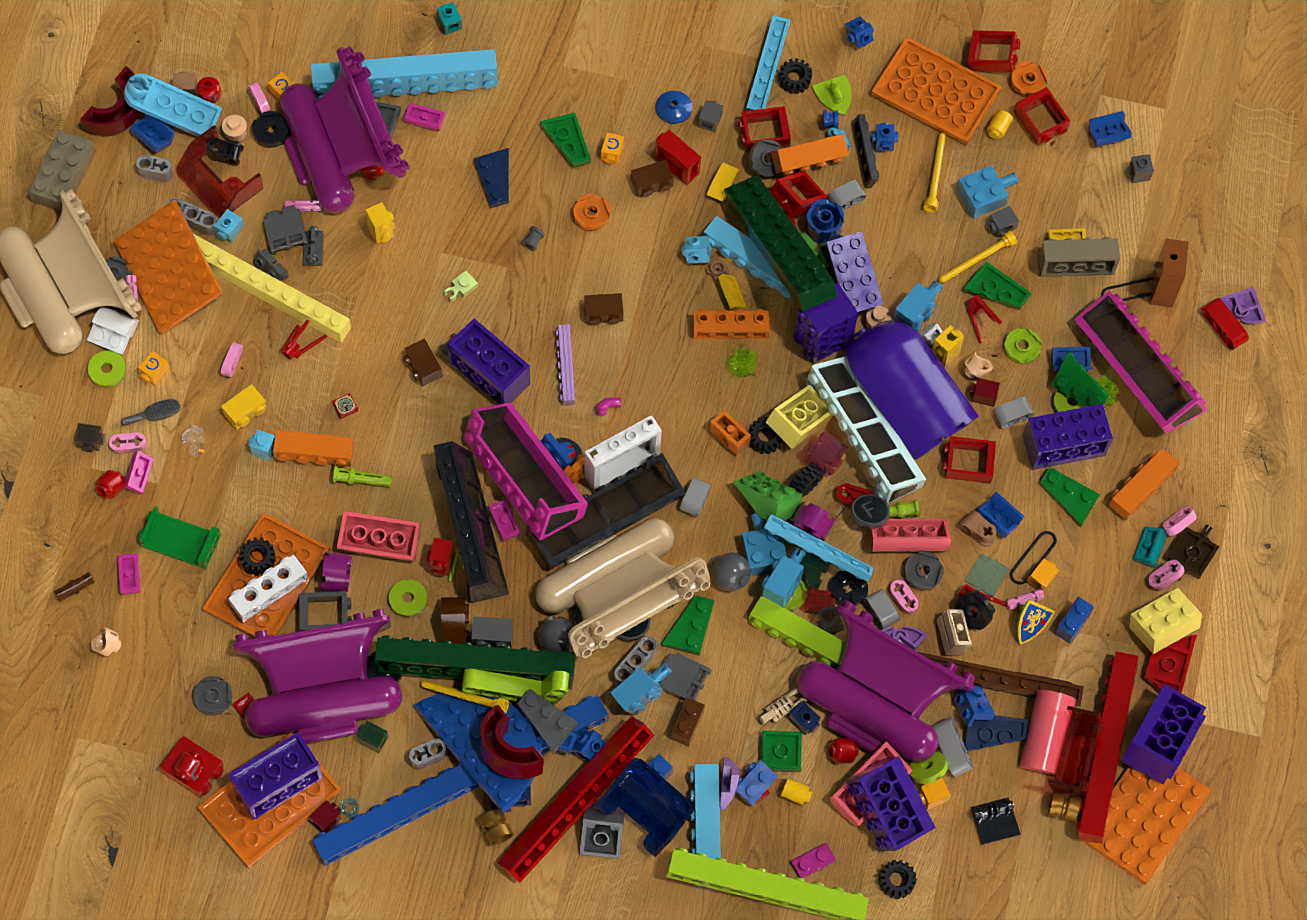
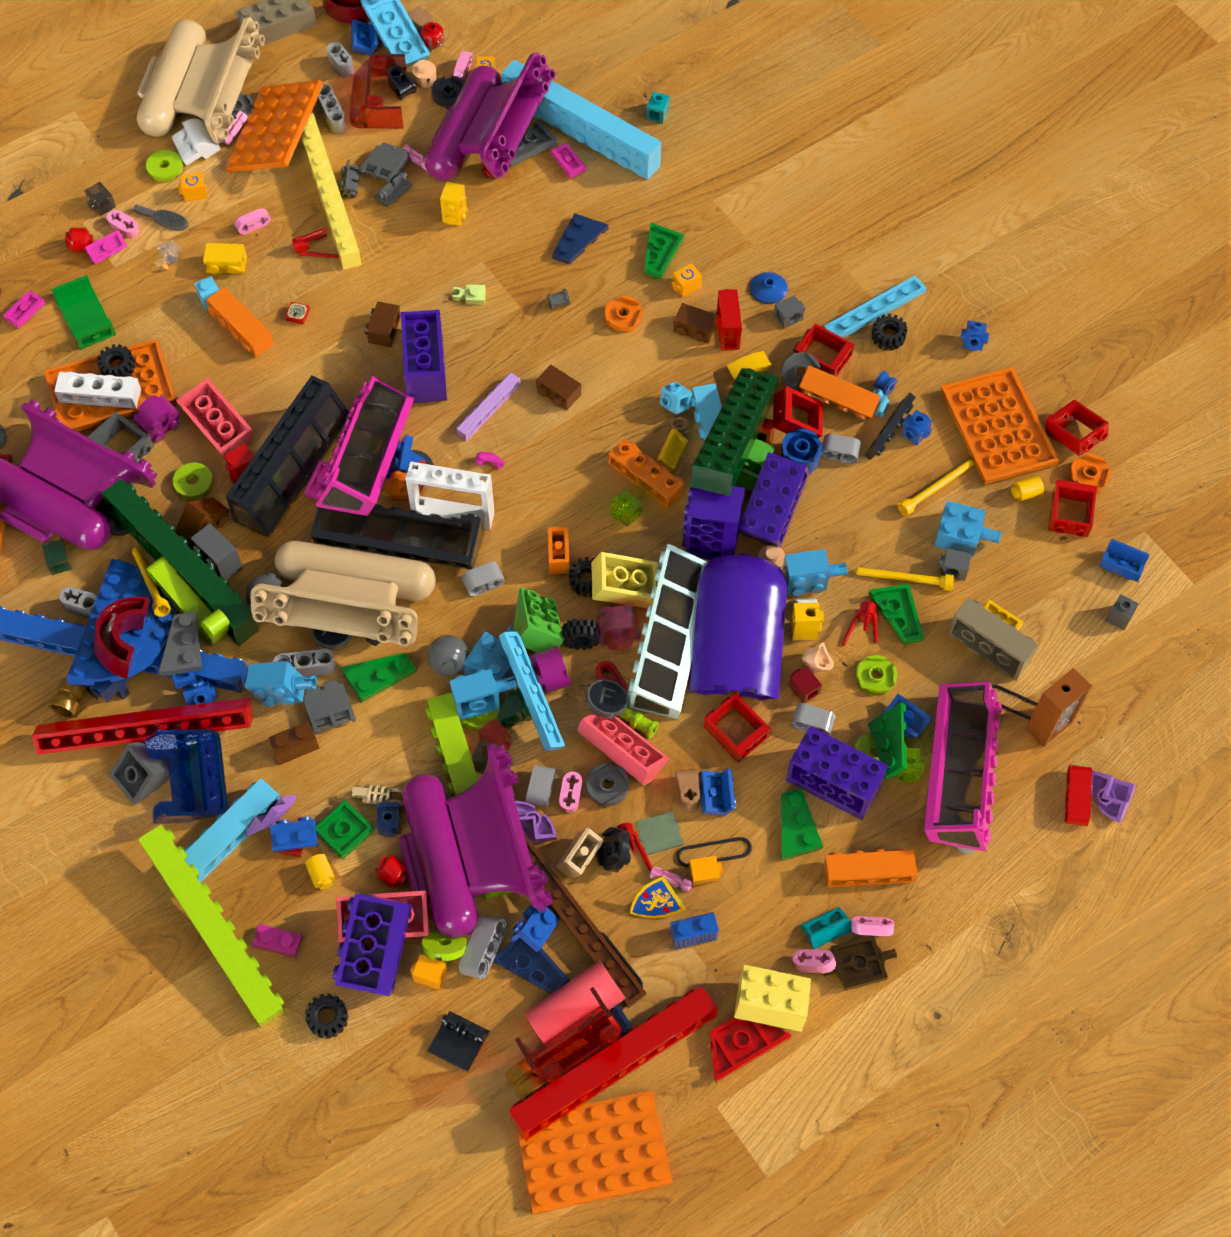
camera: 45 degrees right, 5 degrees down
(228, 226) = (348, 132): medium azure brick -> none
(353, 476) = (247, 363): lime pin -> none
(661, 766) = (234, 760): blue brick -> none
(834, 94) = (910, 369): lime shield -> none
(843, 579) = (520, 745): black plate -> none
(1165, 735) = (670, 1093): dark purple brick -> none

